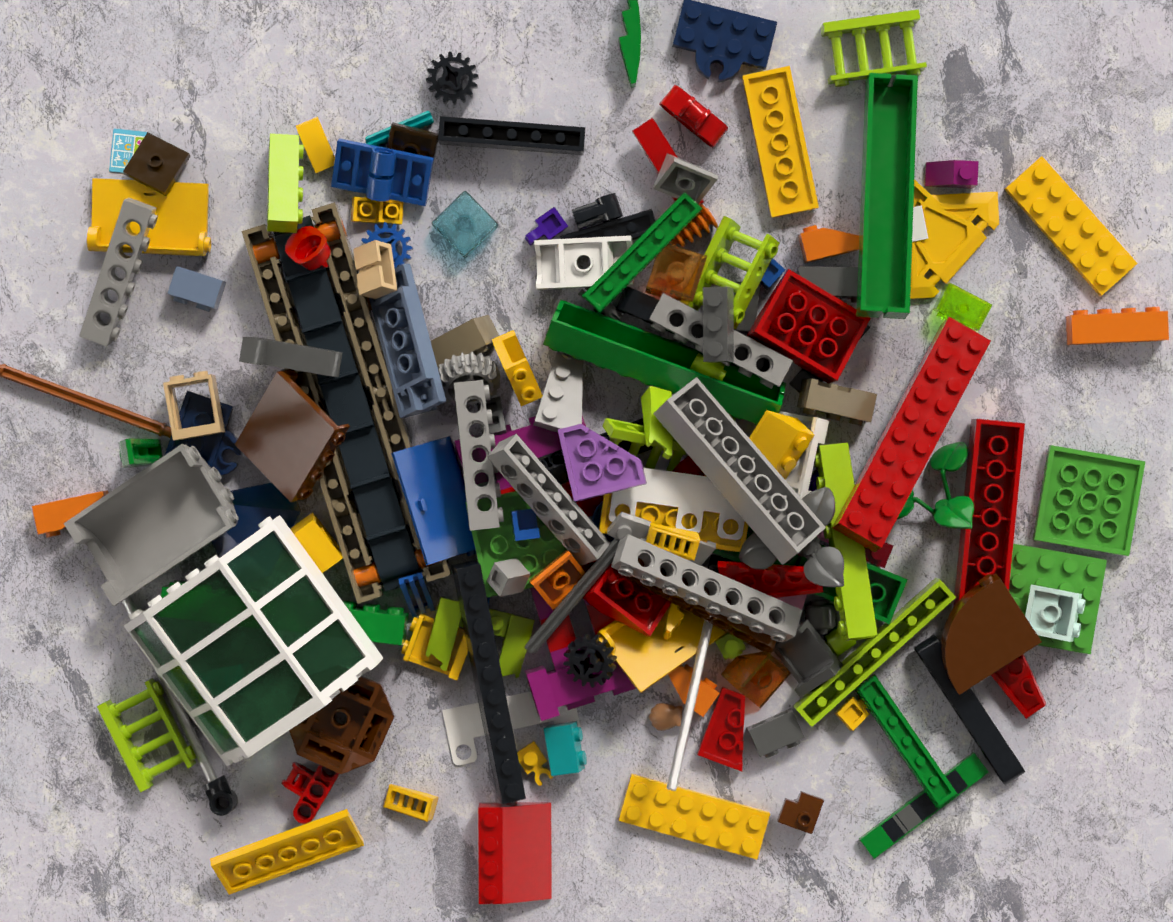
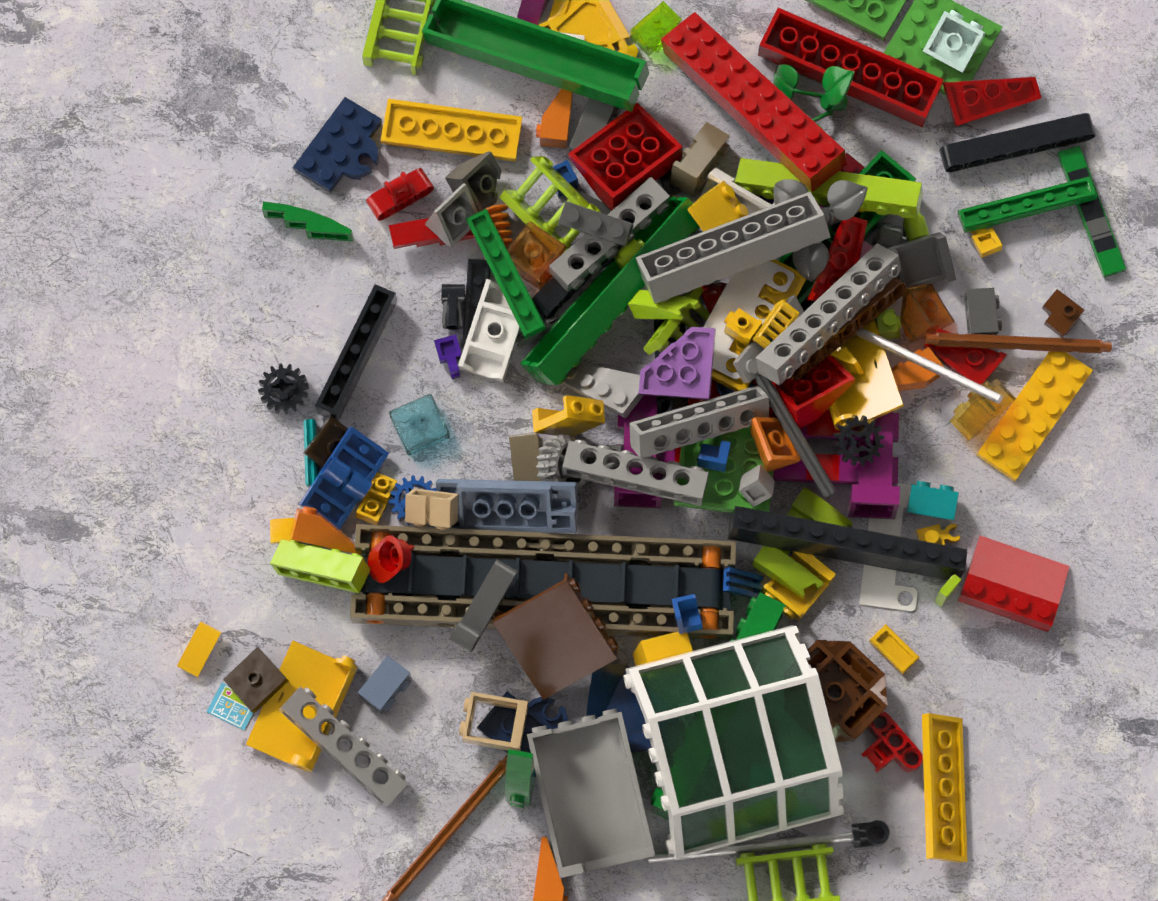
camera: 70 degrees left, 15 degrees down
(167, 98) = (199, 649): none -> yellow slope
(318, 169) = (317, 530): none -> orange slope
(354, 555) = (687, 614): none -> blue panel
(408, 758) = (893, 649): none -> yellow tile
(423, 797) = (948, 646): yellow slope -> none
(435, 499) = (663, 530): blue door -> none
(479, 792) = (947, 590): none -> lime tile
(655, 514) = (745, 333): none -> yellow brick
(659, 760) = (979, 411): none -> clear yellow brick
(665, 716) = (934, 405): medium nougat animal -> none
(735, 187) = (481, 178): none -> dark grey slope
(756, 779) = (1018, 342): none -> dark orange piece
(875, 651) = (937, 202): lime brick -> none
(984, 634) = (952, 100): reddish brown brick -> none

